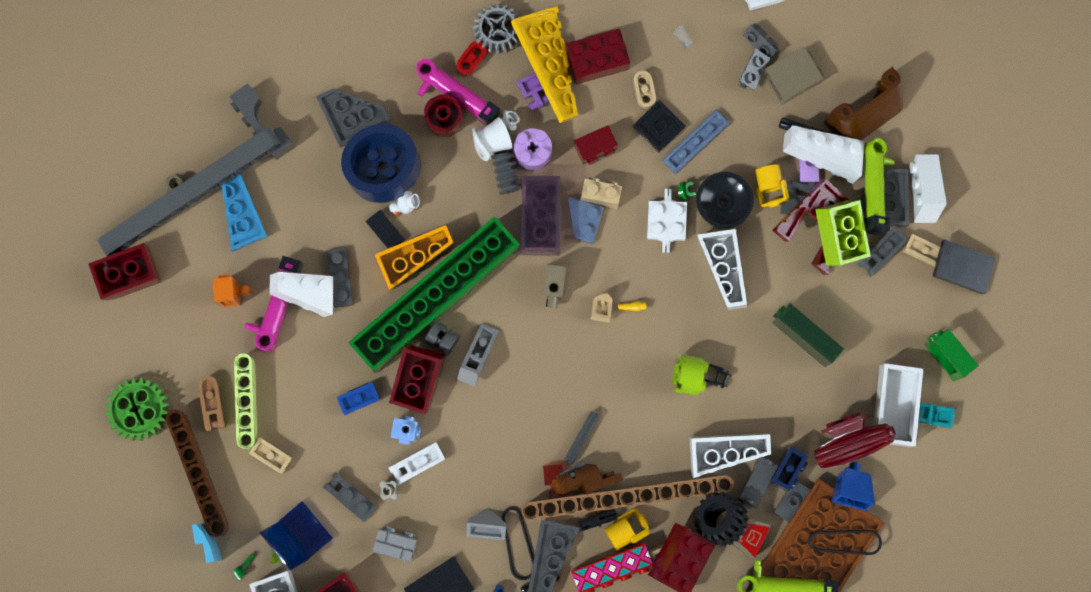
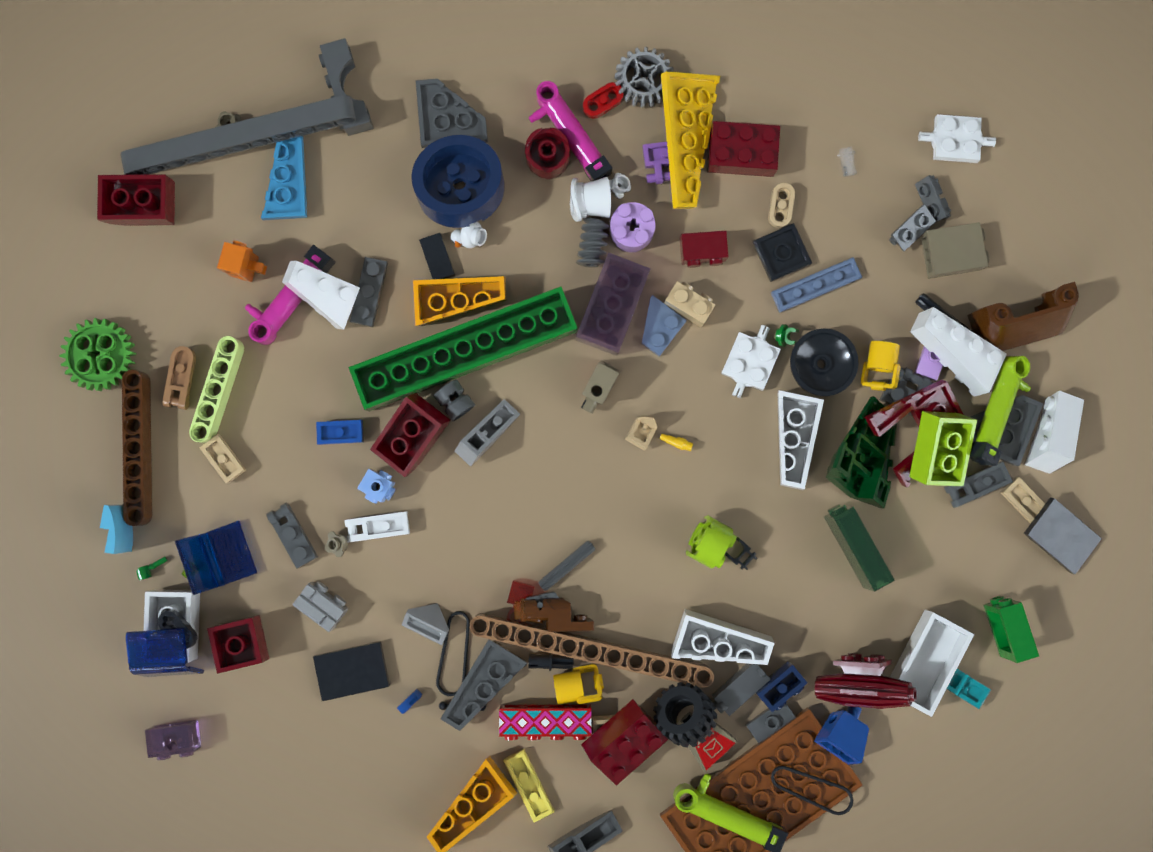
camera: 25 degrees right, 5 degrees up
(785, 266) = (864, 460): none -> dark green wedge

